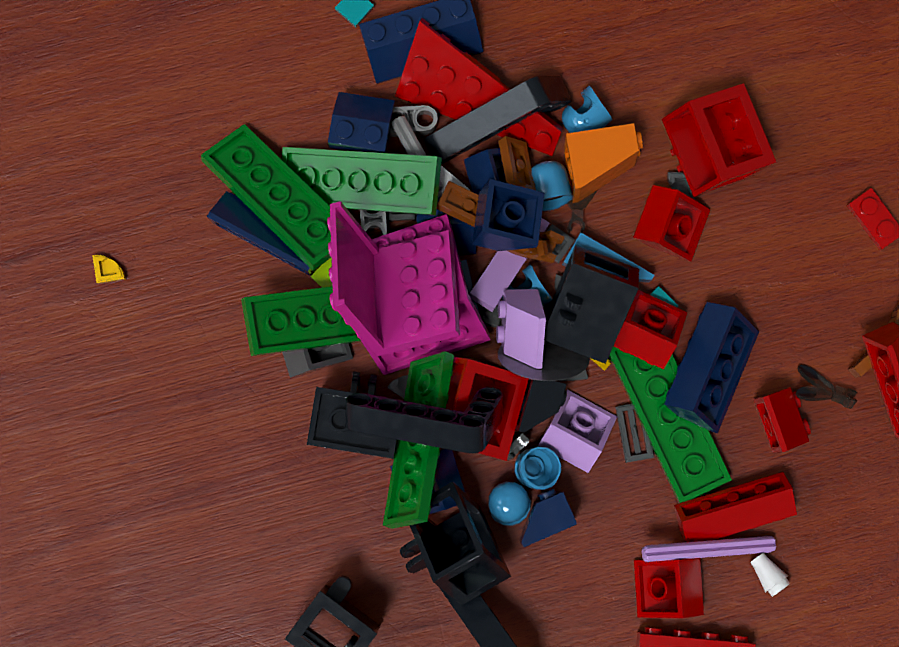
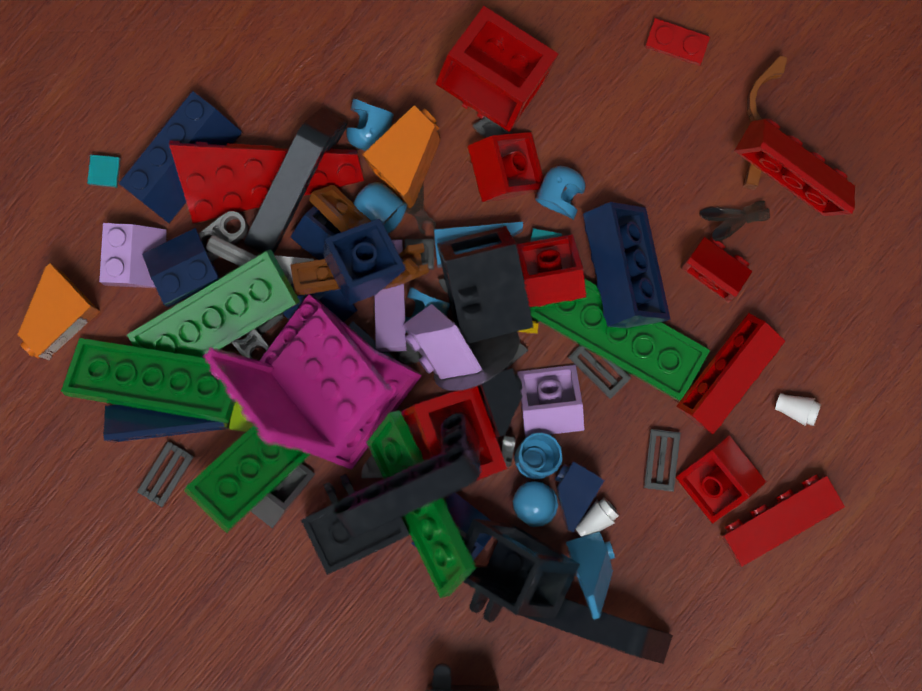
camera: 30 degrees left, 0 degrees up
(107, 270) = (49, 546): yellow tile -> none
(237, 91) = (54, 314): none -> orange slope
(258, 267) = (154, 470): none -> dark grey tile
(322, 82) = (122, 254): none -> lavender slope
(520, 588) = (594, 568): none -> dark azure slope
(549, 549) = (598, 517): none -> white cone
(648, 521) = (673, 462): none -> dark grey tile
(694, 266) = (552, 188): none -> dark azure helmet
(710, 548) = (731, 423): lavender axle -> none

